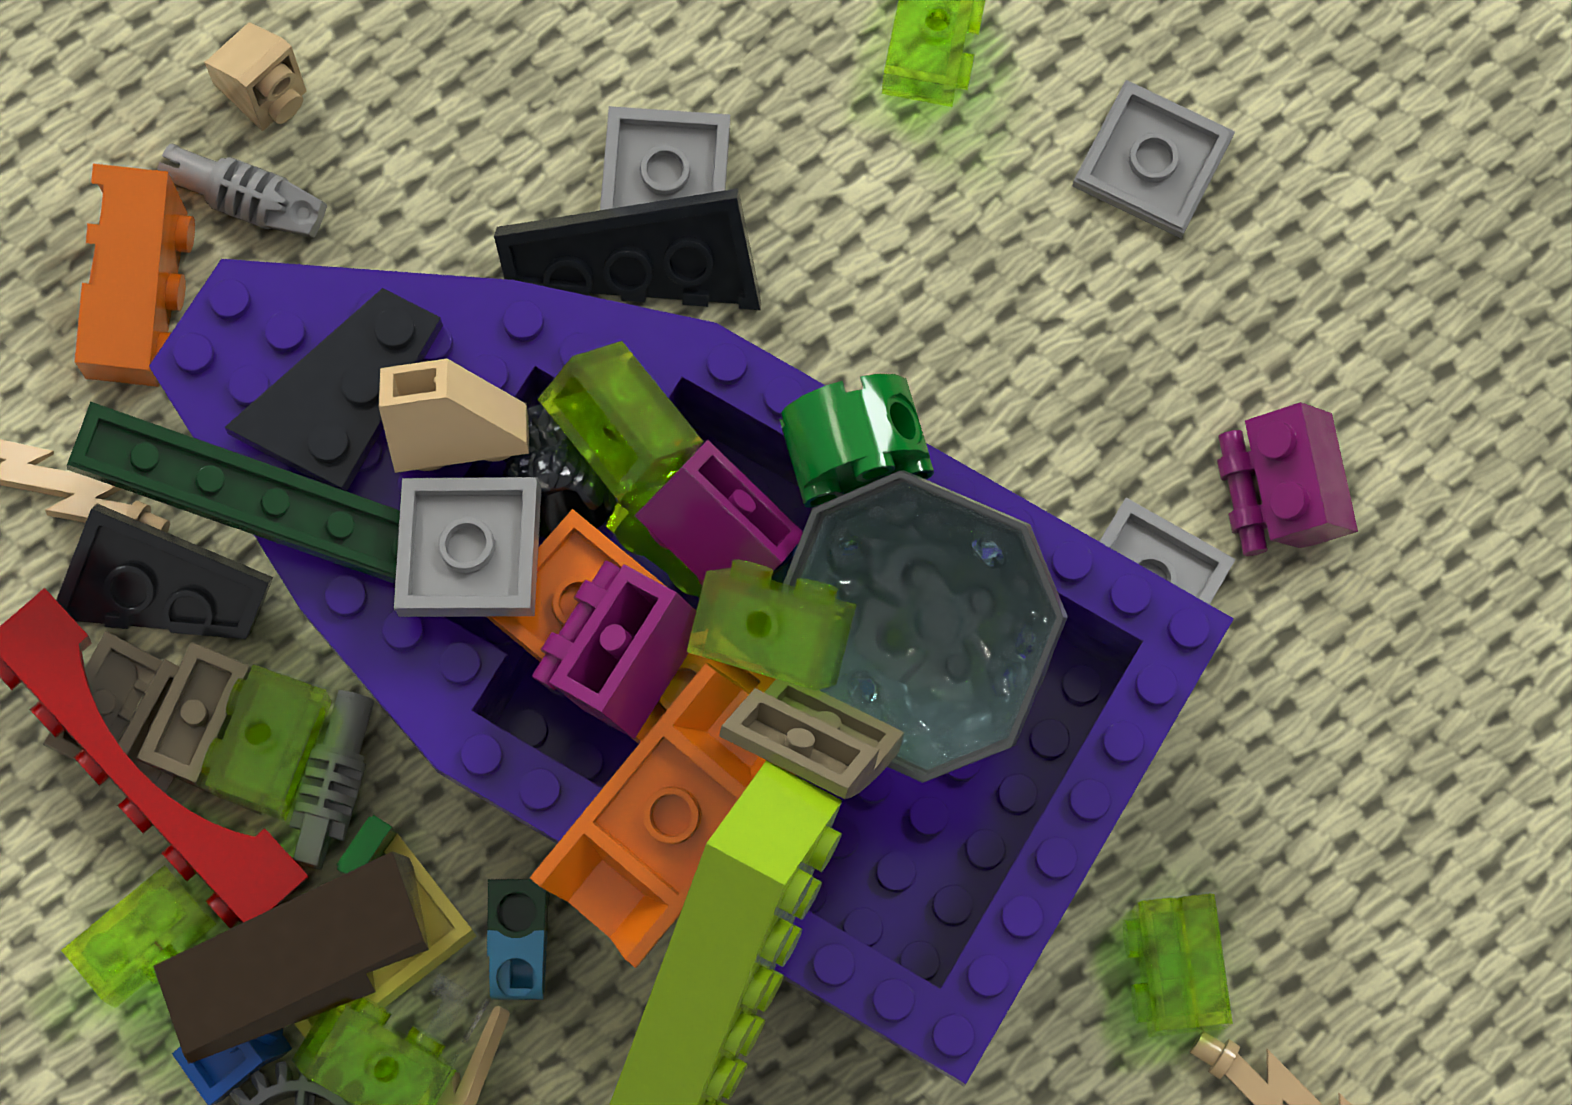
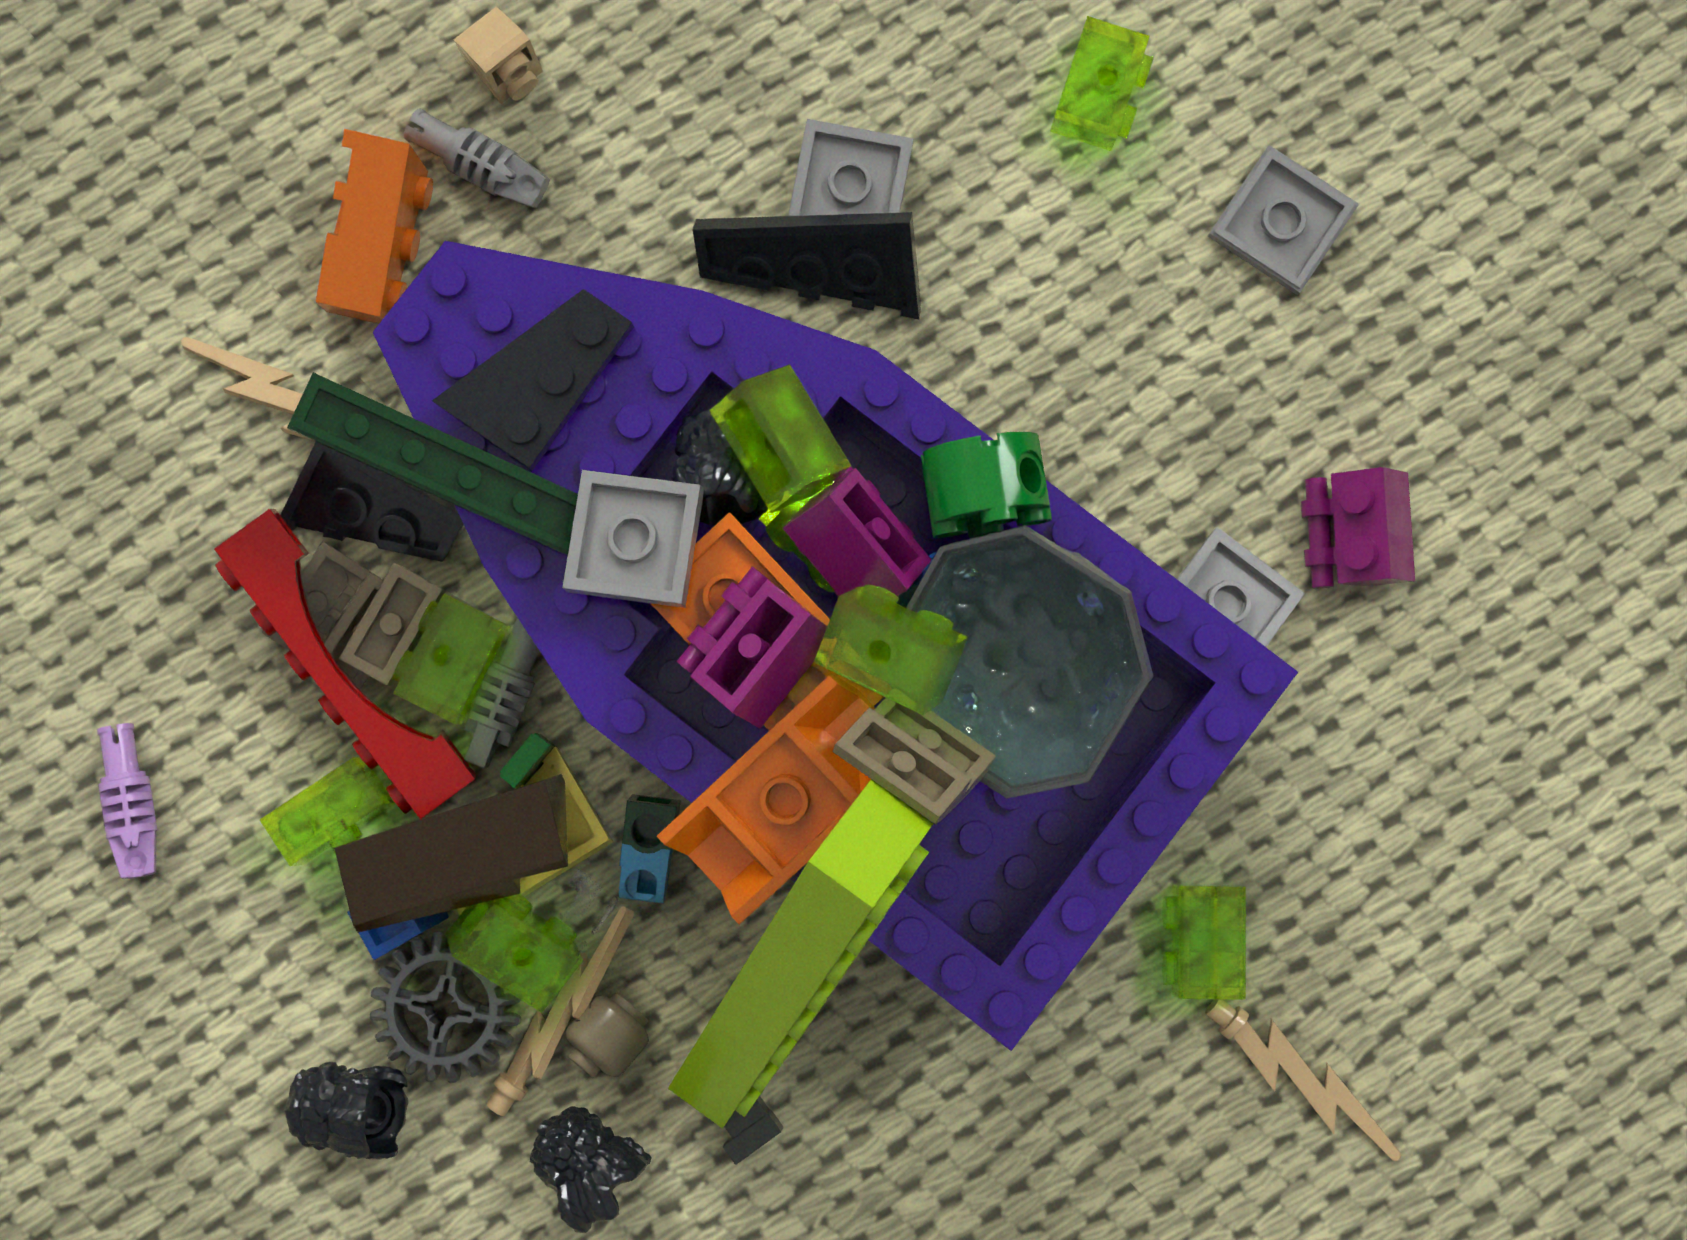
camera: 10 degrees right, 10 degrees up
(447, 417) = (628, 417): tan slope -> none

